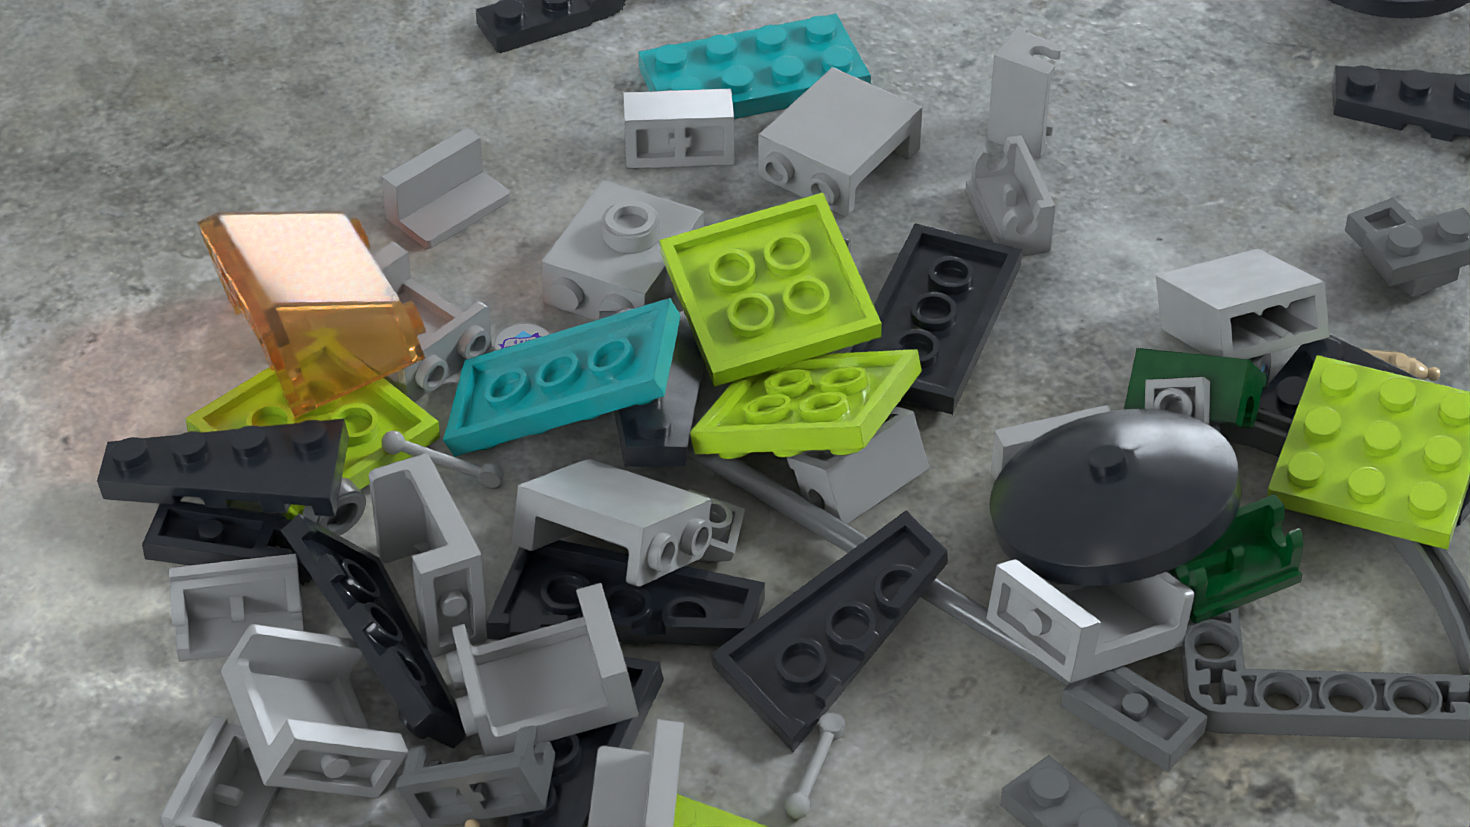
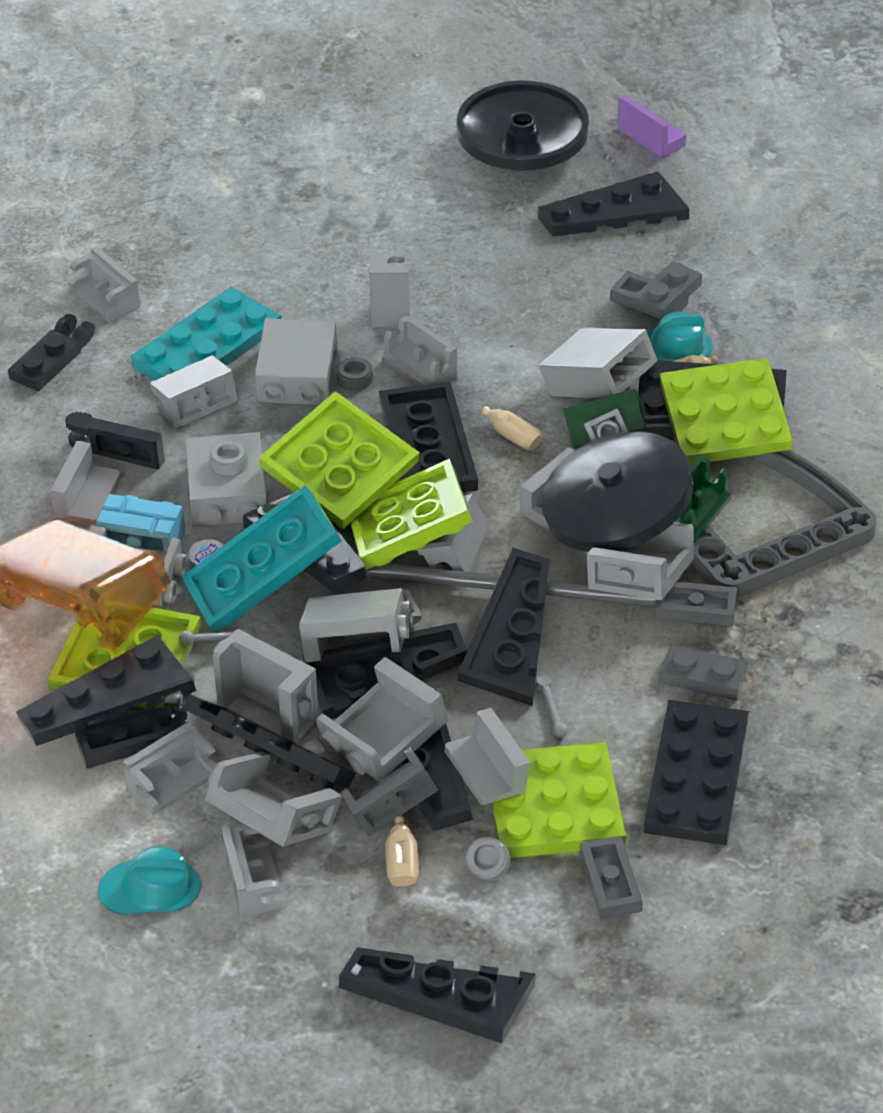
camera: 30 degrees left, 0 degrees up
(93, 754) = (150, 883): none -> teal piece
(468, 268) = (142, 522): none -> medium azure brick
(529, 150) = (116, 440): none -> black hinge
(911, 190) = (354, 374): none -> dark grey tile
(1069, 352) = (514, 428): none -> tan piece
(1397, 318) = (680, 336): none -> teal piece

